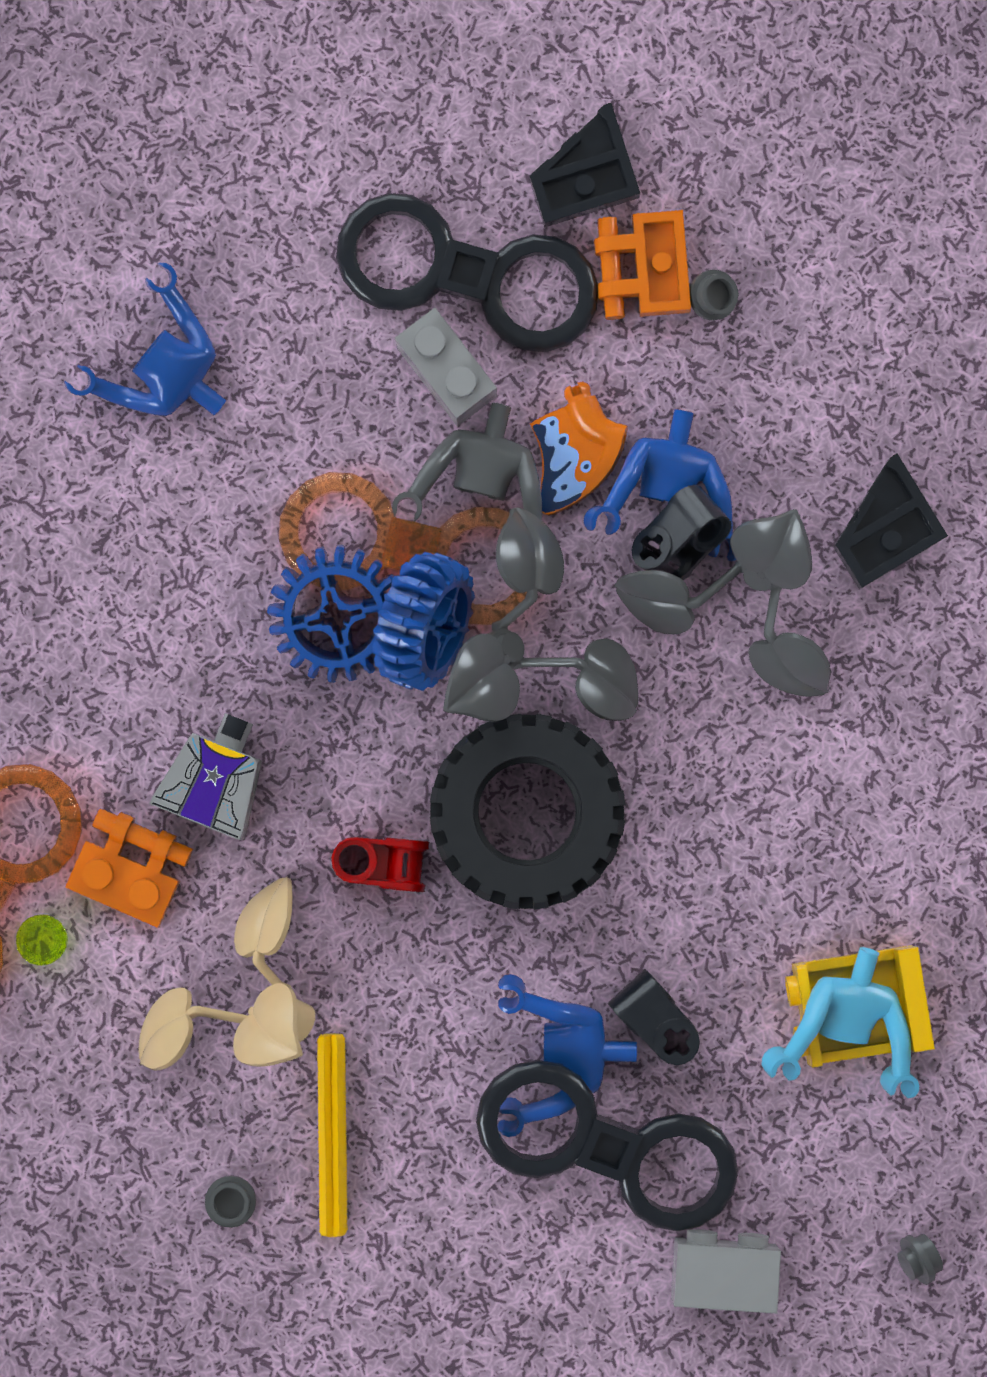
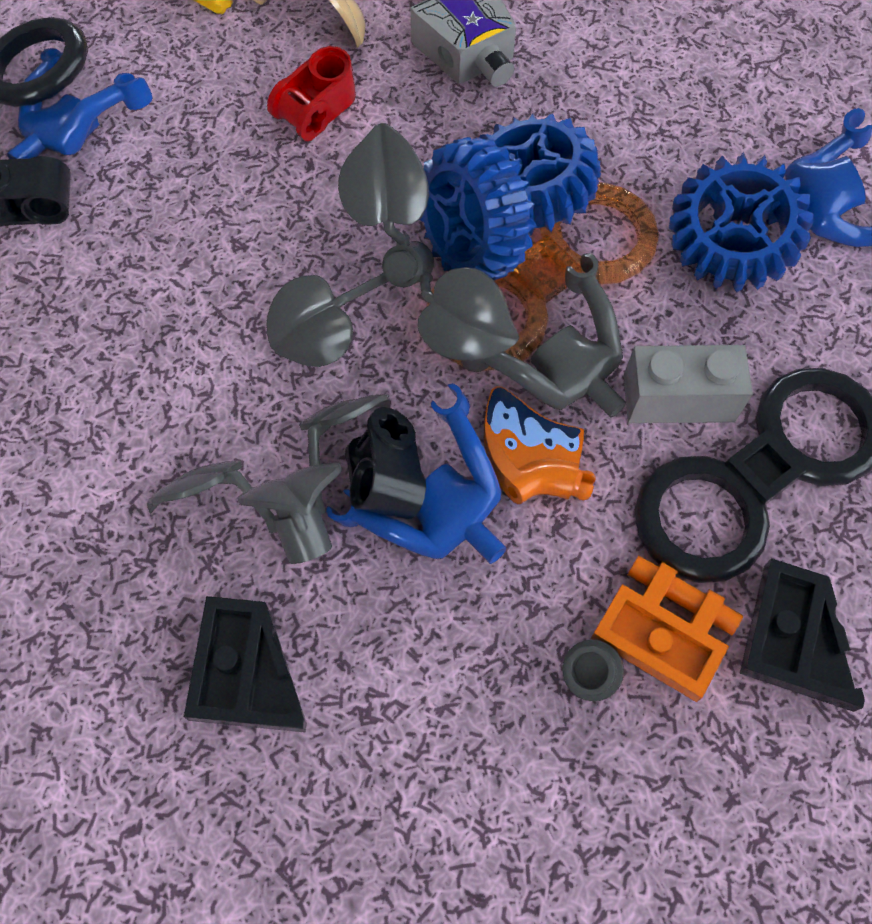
camera: 125 degrees right, 20 degrees down
(241, 409) = (749, 196): none -> blue gear
(597, 811) = (245, 145): black tyre -> none

